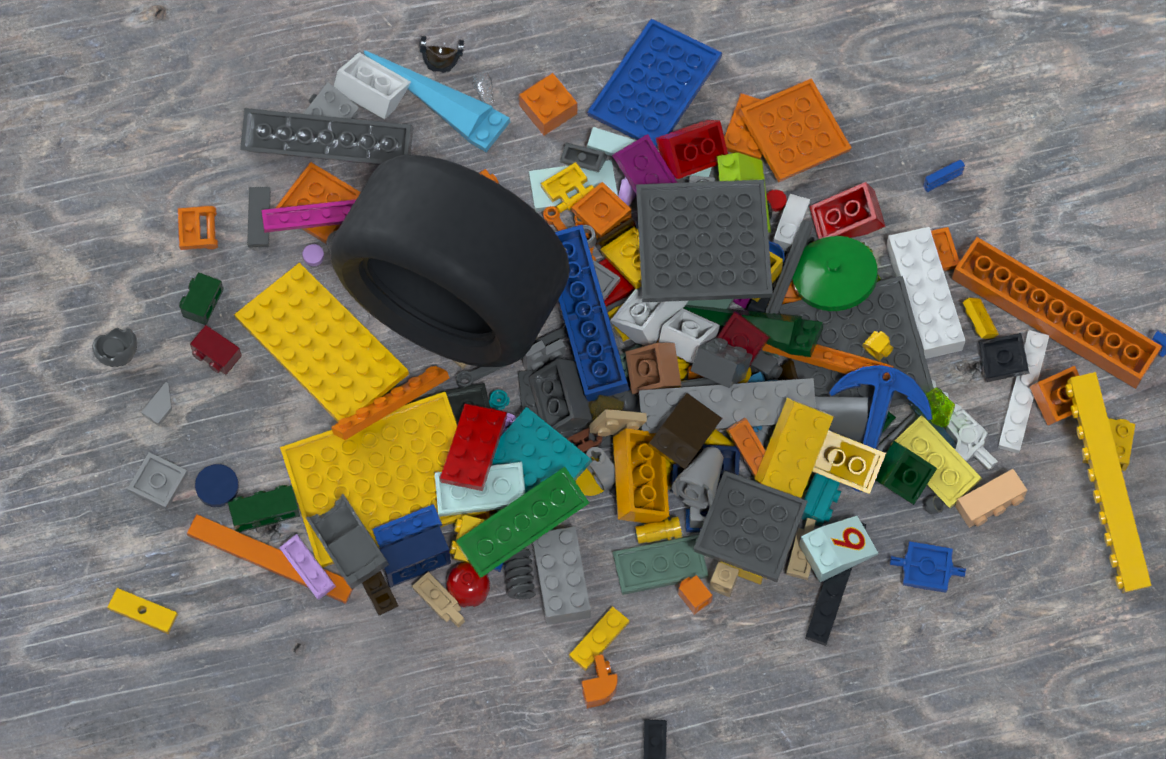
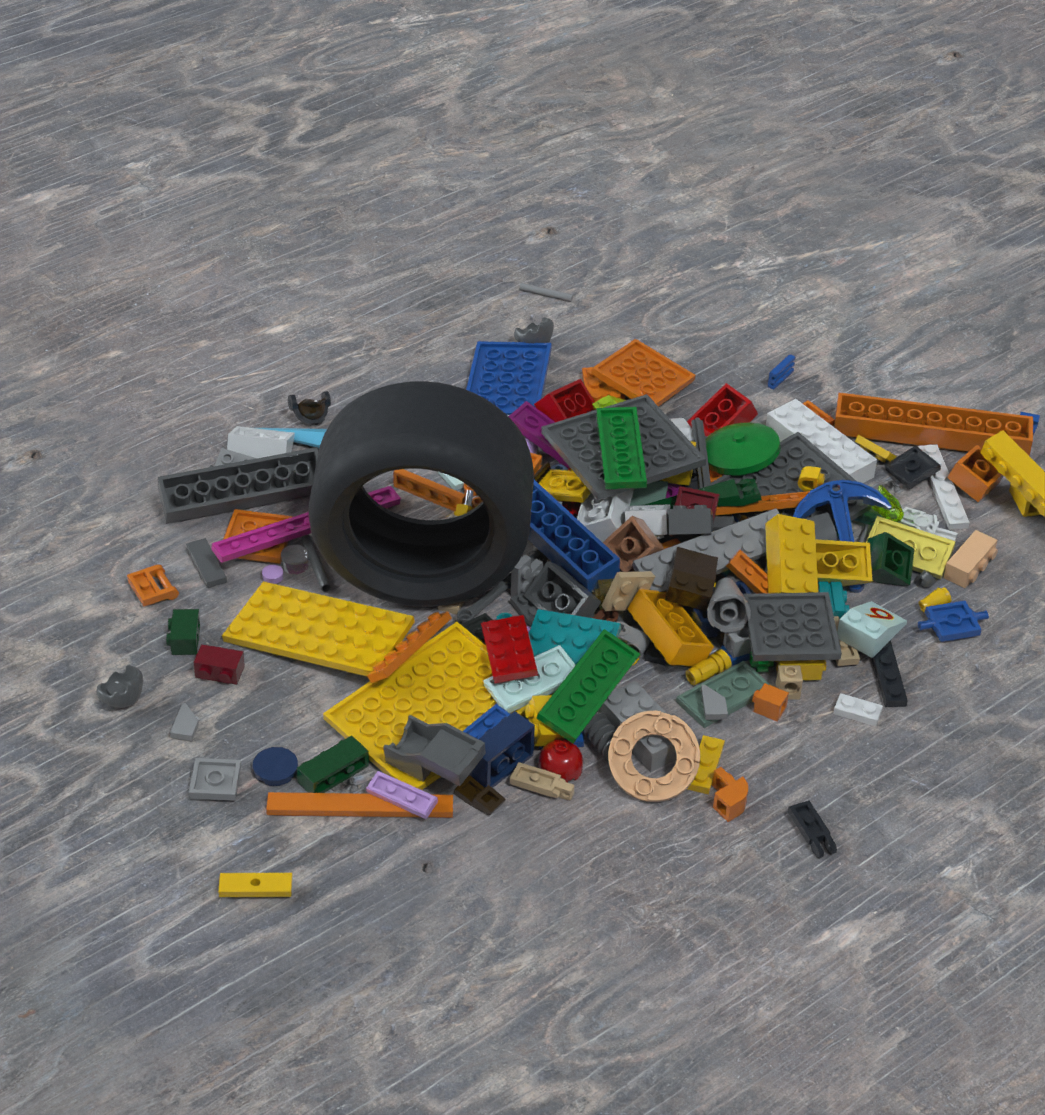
camera: 25 degrees left, 25 degrees down
(521, 638) = (663, 725): none -> light nougat plate
(639, 577) = (713, 704): none -> light grey tile
(693, 249) = (621, 448): none -> green plate
(713, 31) = (535, 333): none -> dark grey piece
(775, 633) = (858, 709): none -> white plate
(926, 535) = (937, 597): none -> yellow cone

